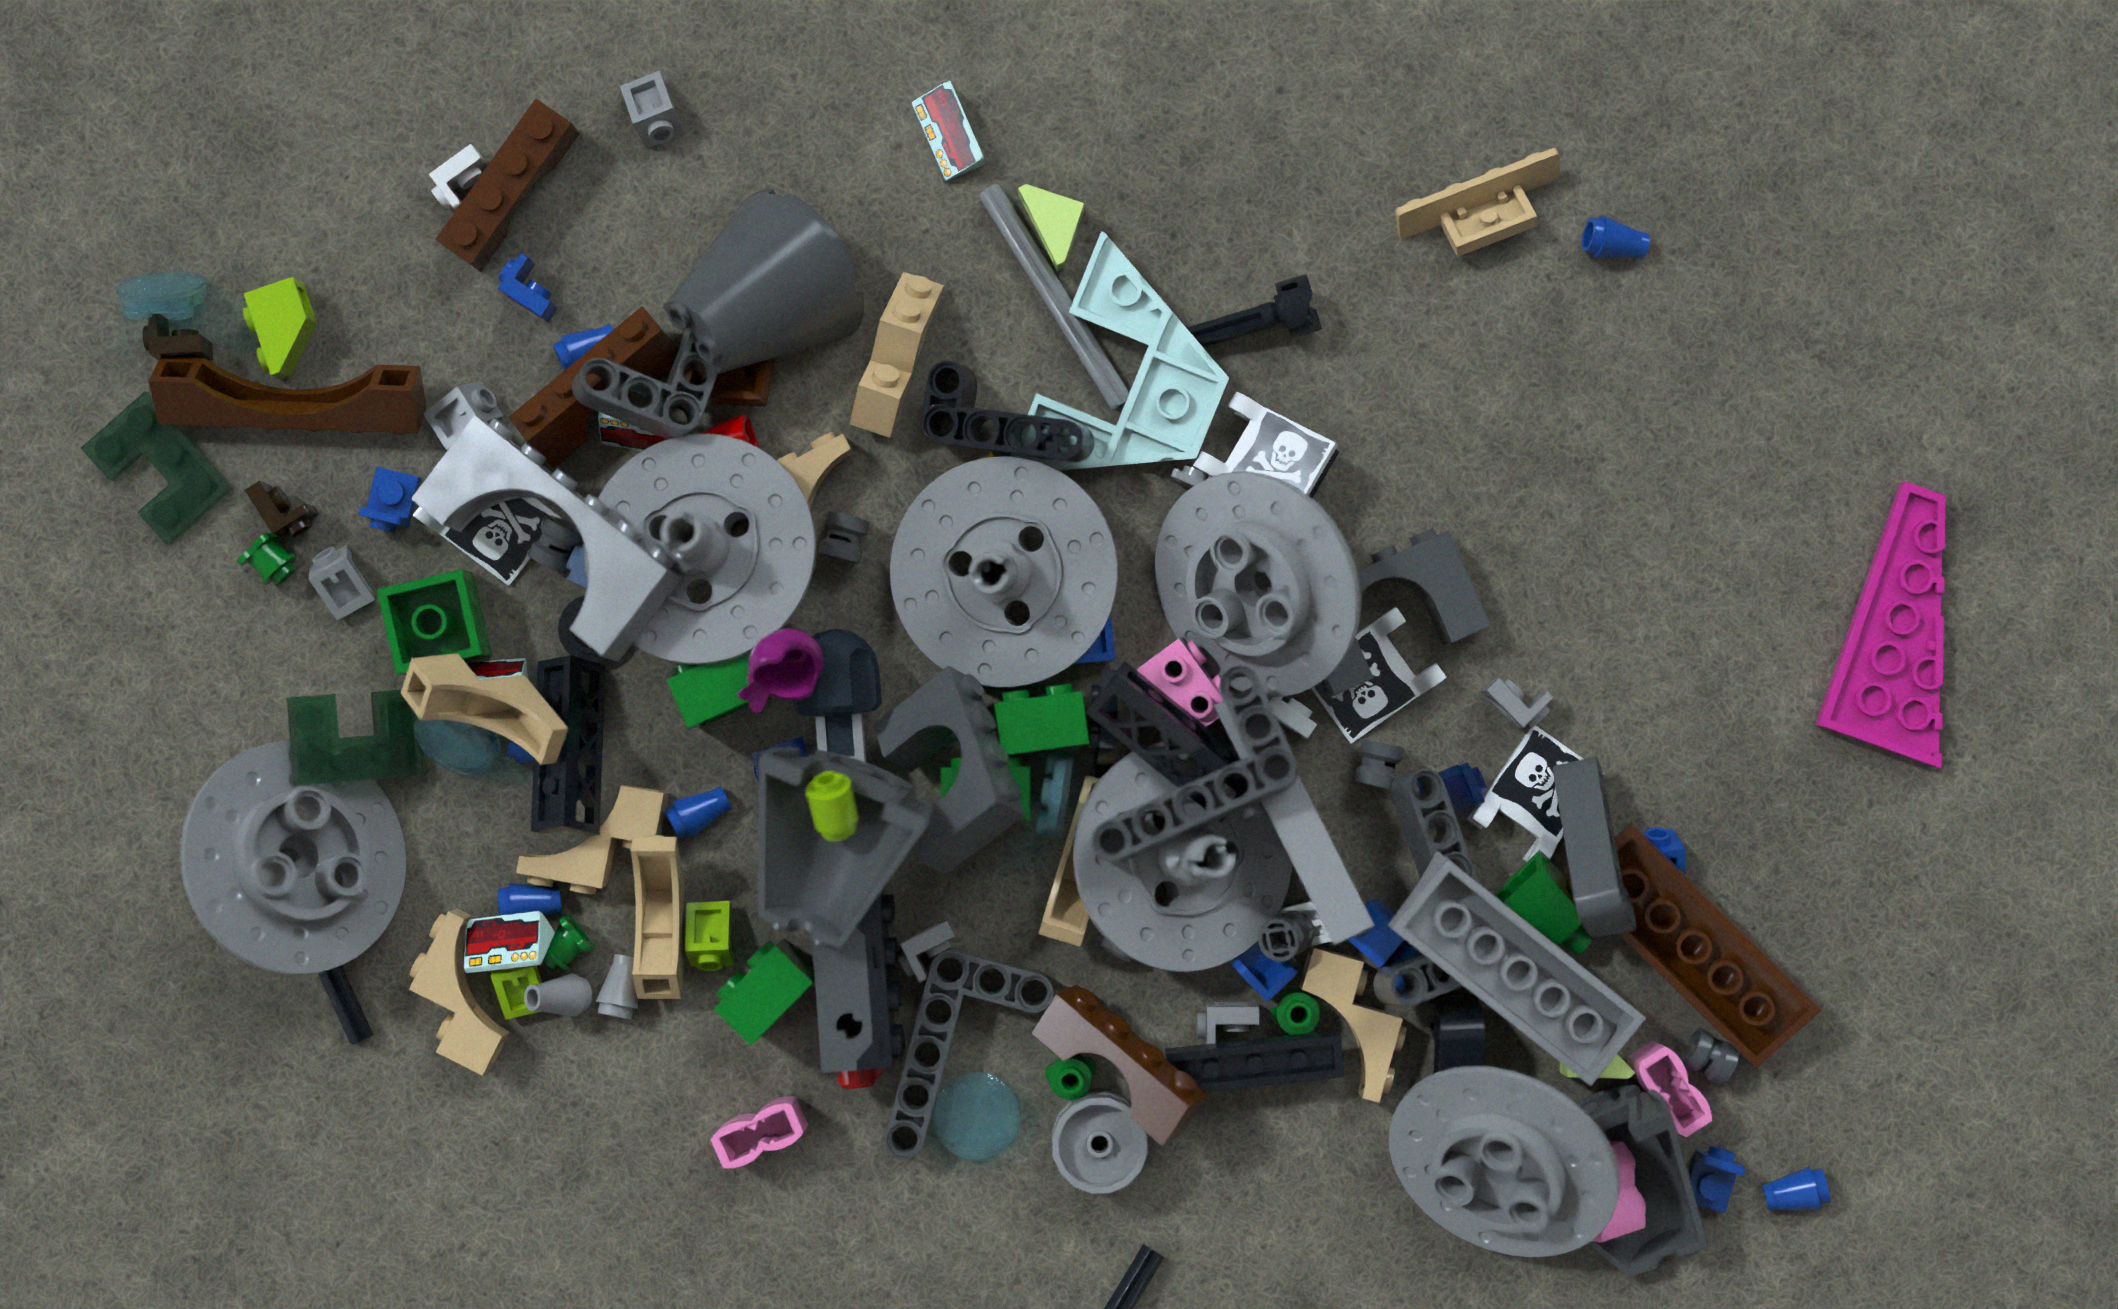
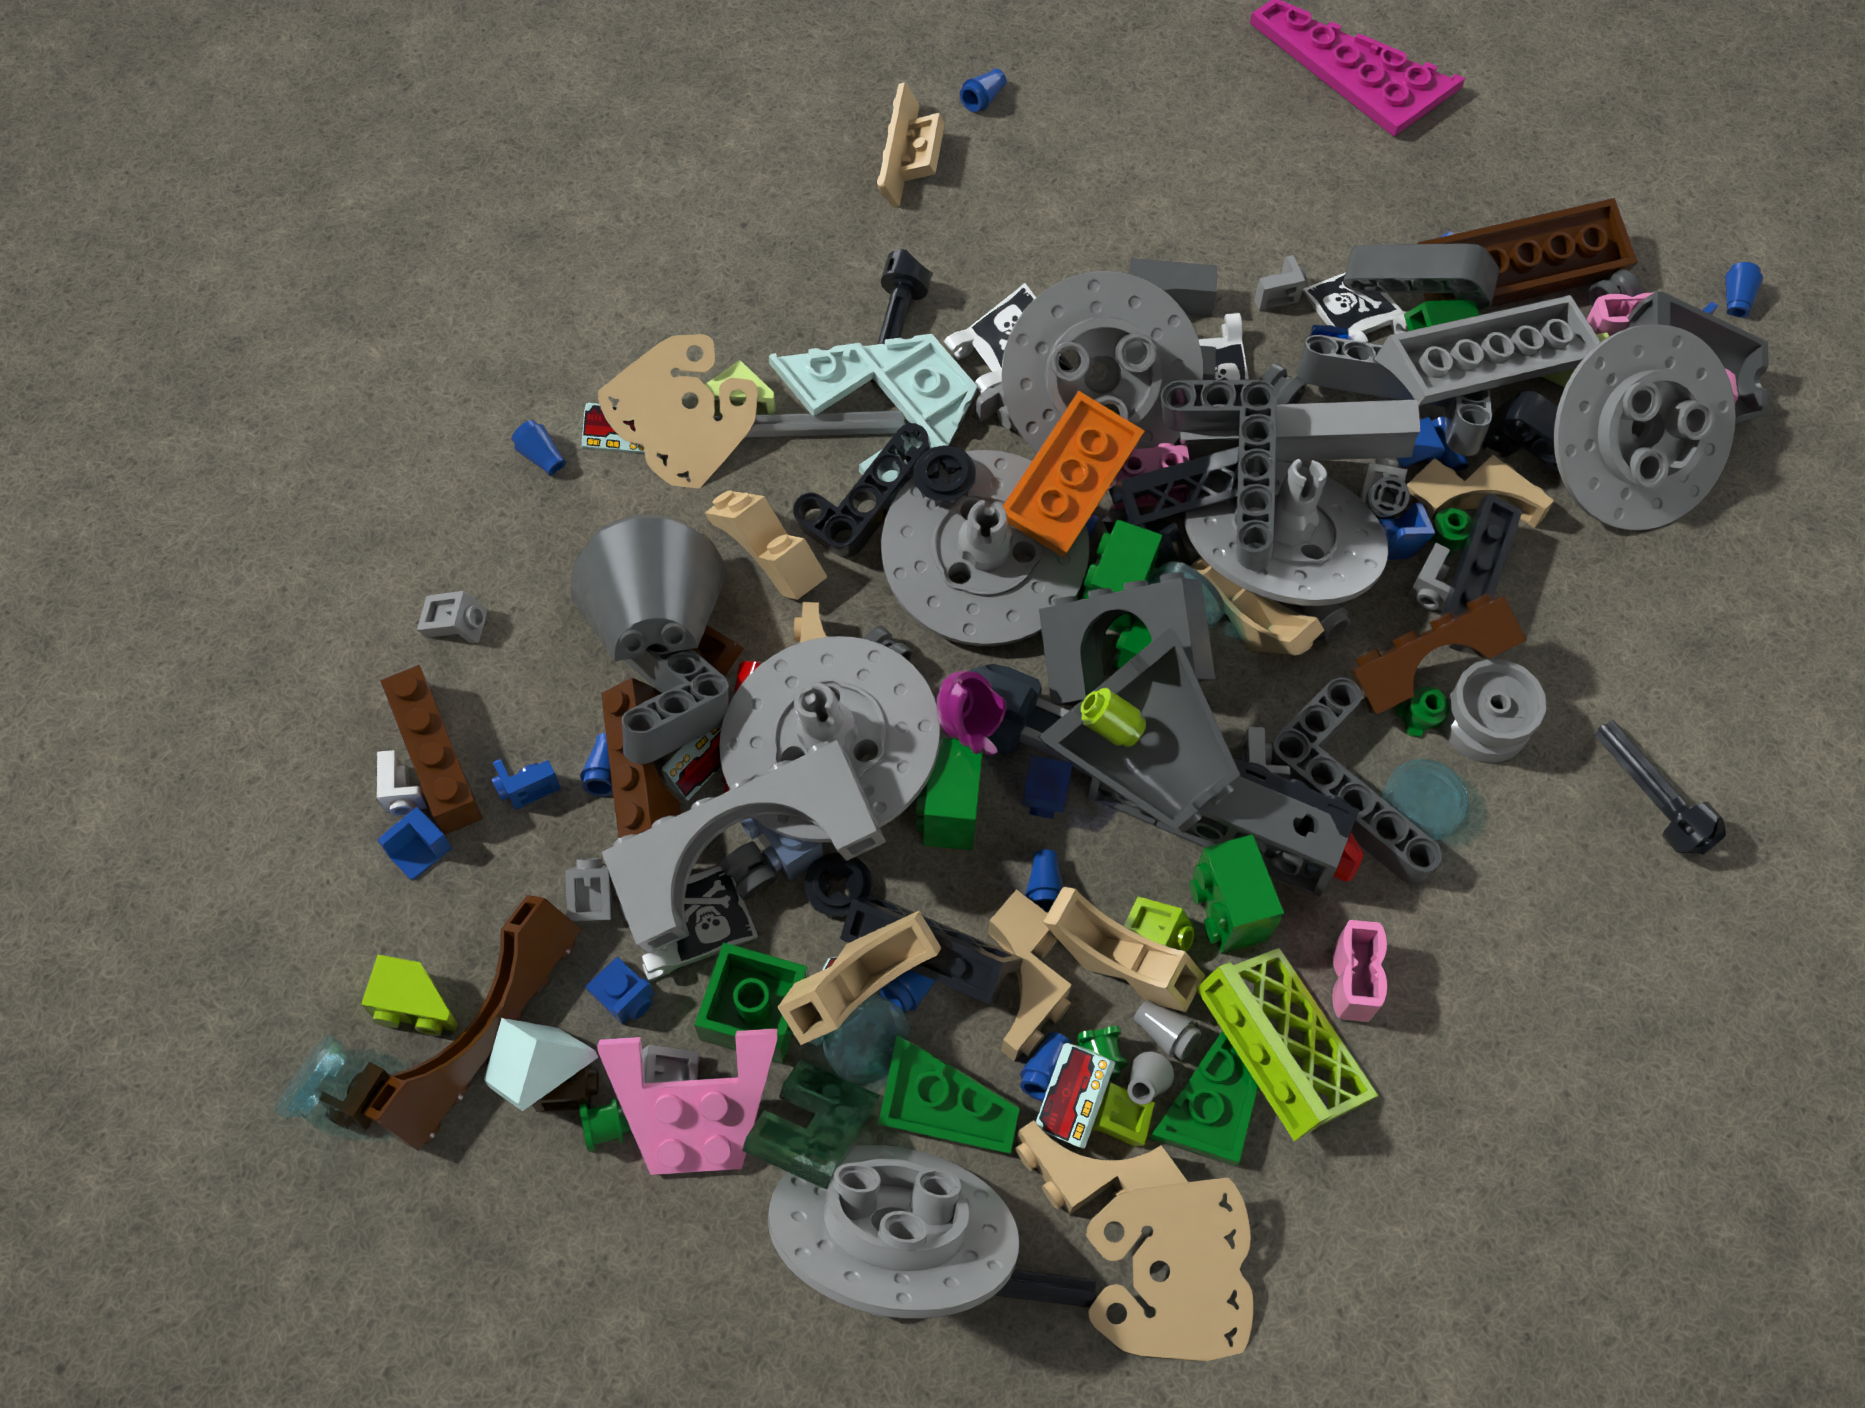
camera: 60 degrees left, 25 degrees down
(192, 478) = (484, 1158): clear green plate -> none
(279, 473) = (533, 1061): none -> light aqua slope
(306, 630) = (691, 1121): none -> bright pink wing
(416, 233) = (414, 844): none -> blue panel
(425, 1118) = (1202, 1265): none -> tan piece
(446, 833) = (944, 1102): none -> green wing
(583, 1061) = (1213, 1107): none -> green wing
(629, 1090) = (1268, 1052): none -> lime fence
(880, 64) = (537, 446): none -> blue cone
(971, 174) = (662, 422): none -> tan piece
(1045, 472) = (954, 461): none -> black gear
(1114, 617) = (1071, 473): none -> orange plate

